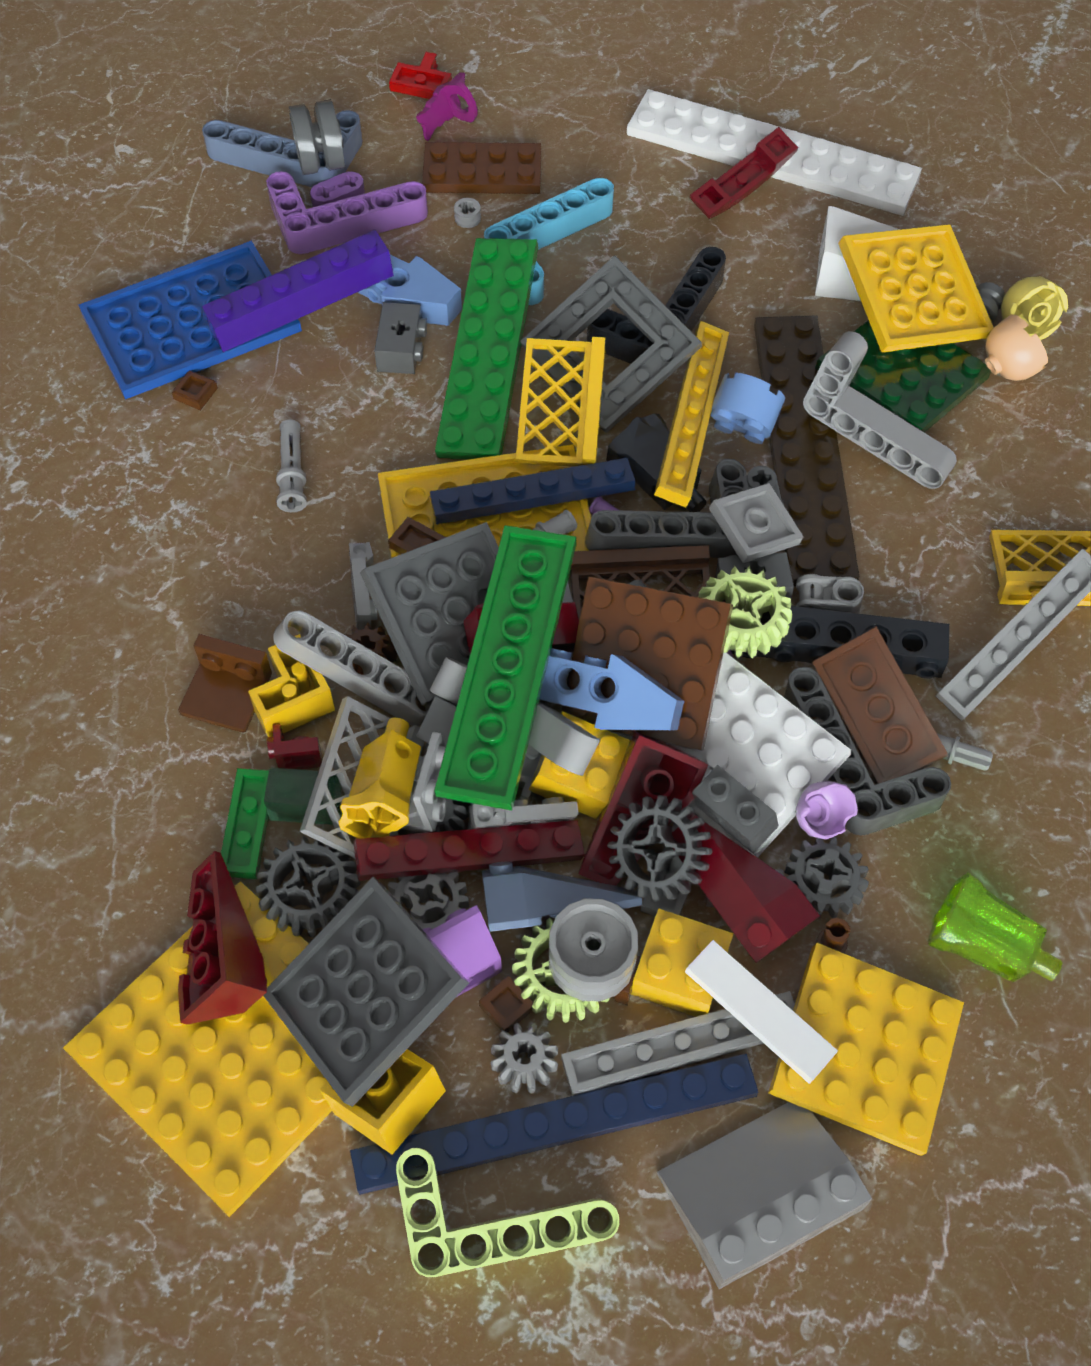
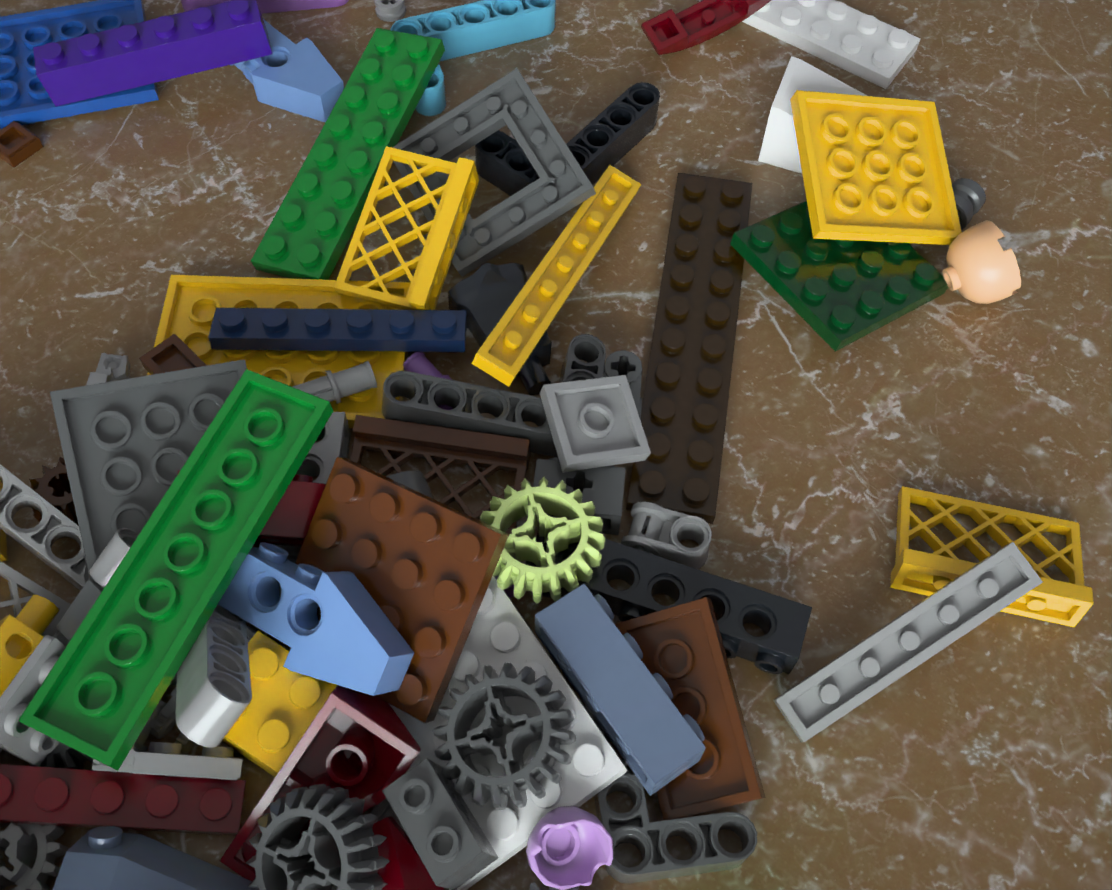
camera: 10 degrees right, 0 degrees up
(290, 437) = (74, 261): light grey pin -> none
(399, 338) = (258, 125): dark grey brick -> none
(746, 407) = (630, 274): medium blue brick -> none
(787, 725) = (464, 742): none -> dark grey gear
(830, 699) = (619, 688): none -> sand blue brick
(870, 424) = (776, 321): light grey beam -> none
(966, 753) = (791, 794): light grey axle -> none
(1036, 302) = (1023, 214): light yellow cylinder -> none

